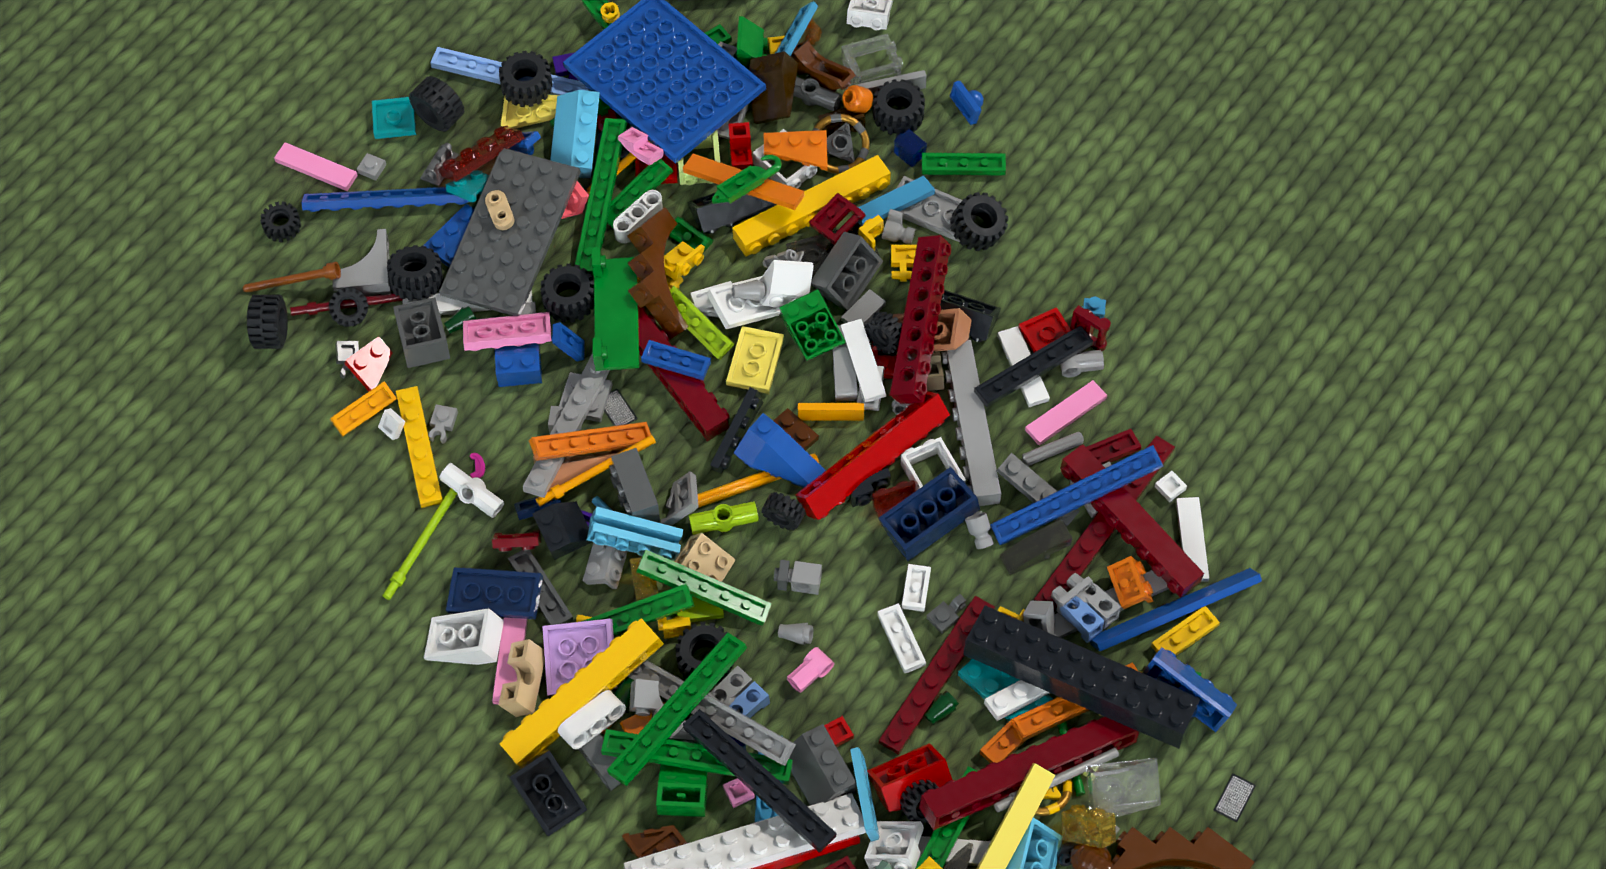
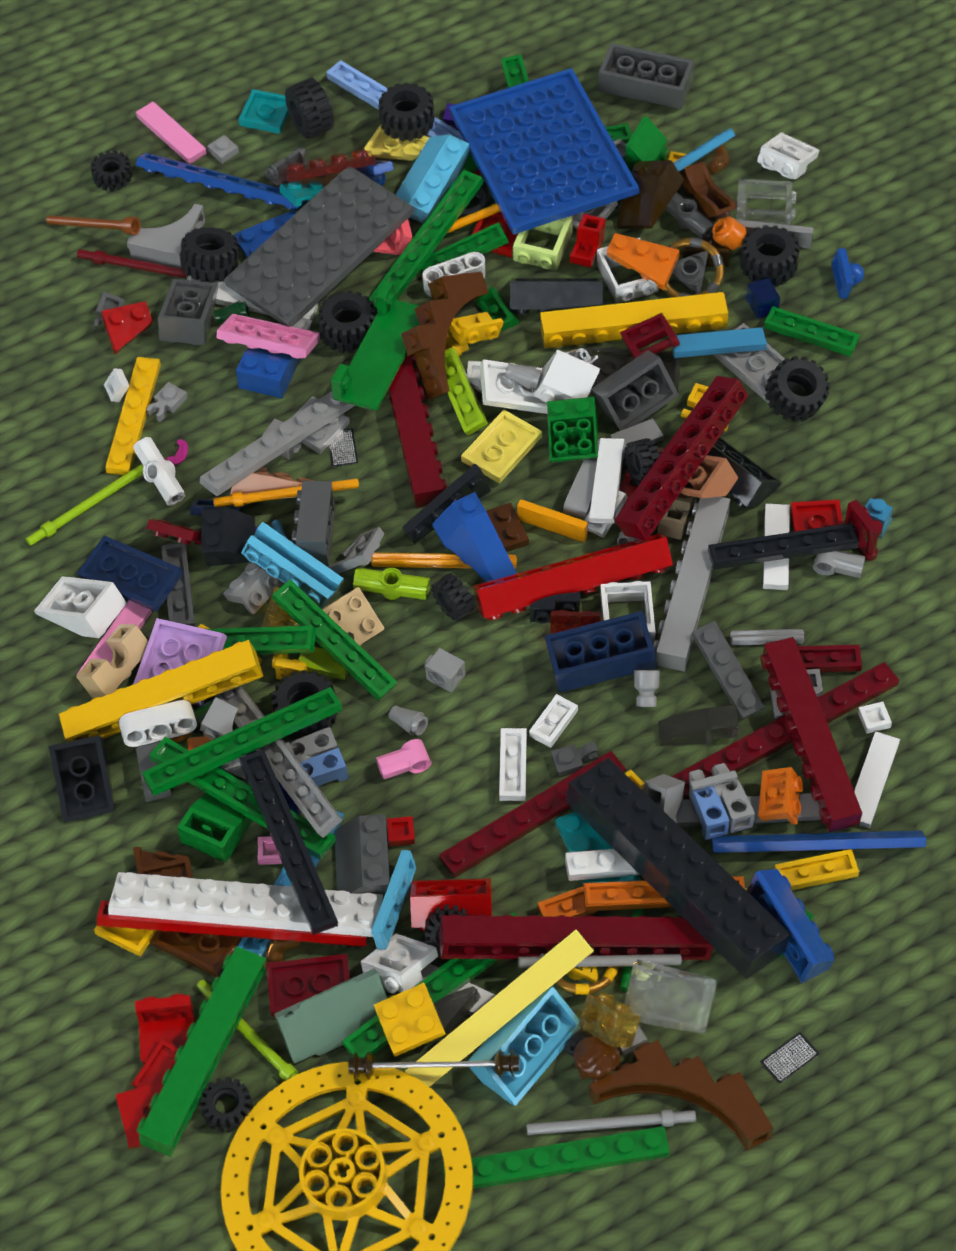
camera: 25 degrees right, 5 degrees down
(267, 321) = (46, 251): black tyre -> none
(348, 293) = (134, 278): black tyre -> none
(363, 409) = (98, 362): light orange tile -> none
(499, 208) = (316, 220): tan plate -> none
(568, 341) = (320, 363): blue plate -> none
(588, 441) = (289, 460): orange tile -> none
(610, 7) = (520, 75): yellow bush -> none
(637, 144) = (484, 207): bright pink slope -> none
(676, 360) = (417, 415): blue plate -> none
(719, 172) = (570, 271): orange tile -> none
(745, 181) = (568, 268): green plate -> none
(781, 575) = (419, 658): dark grey plate -> none
(871, 229) = (679, 360): yellow bracket -> none
(894, 228) = (706, 366): light grey piece -> none
(942, 706) = (519, 847): dark green cone -> none
(1066, 412) = (799, 606): bright pink tile -> none
(1076, 495) = (763, 685): blue tile -> none

